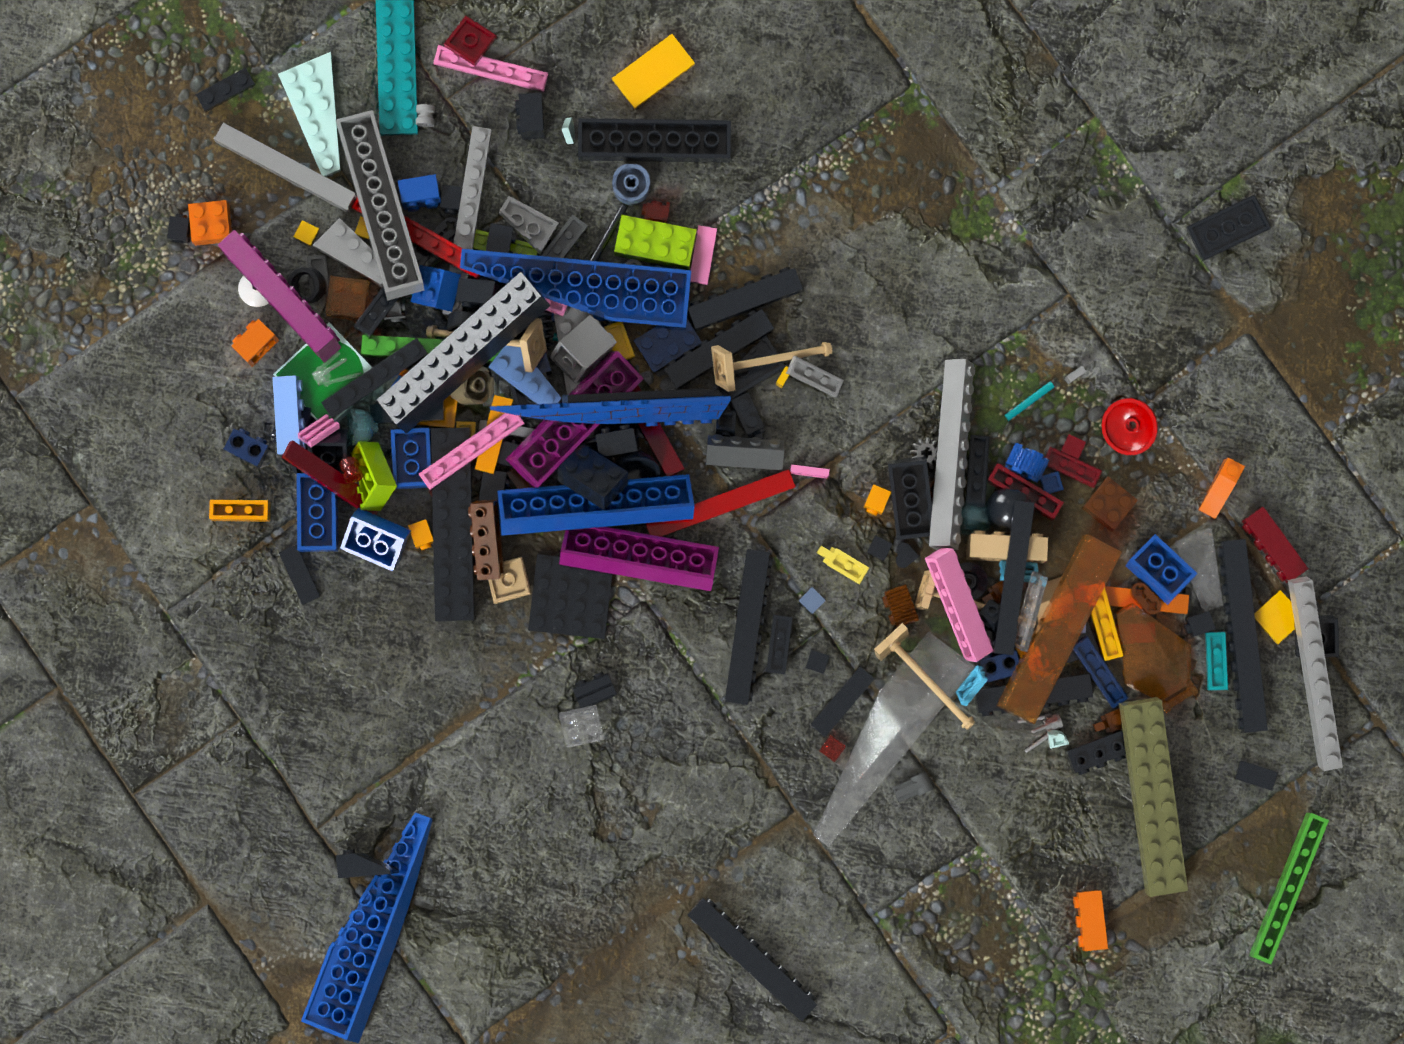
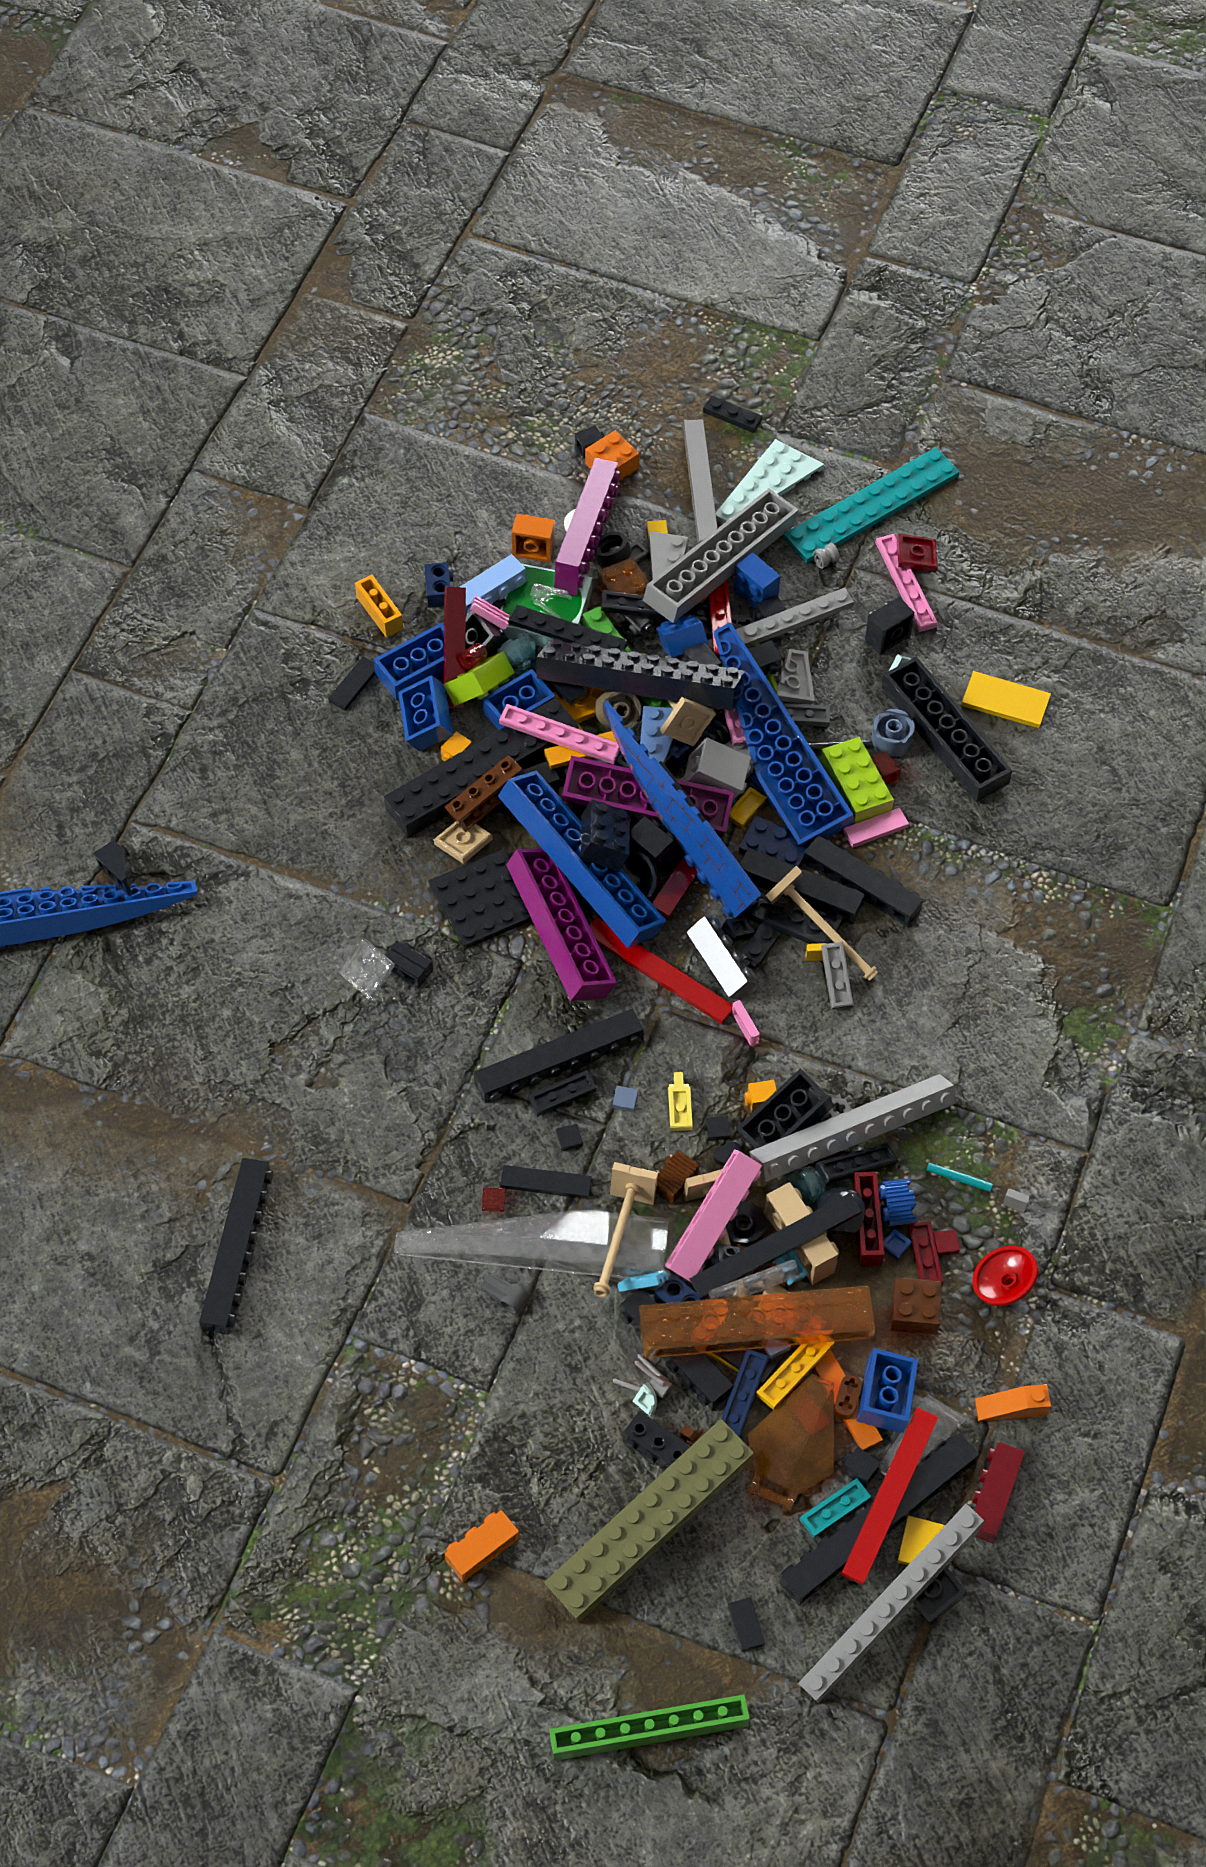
camera: 65 degrees right, 25 degrees down
(1237, 621) = (889, 1496): none -> red tile

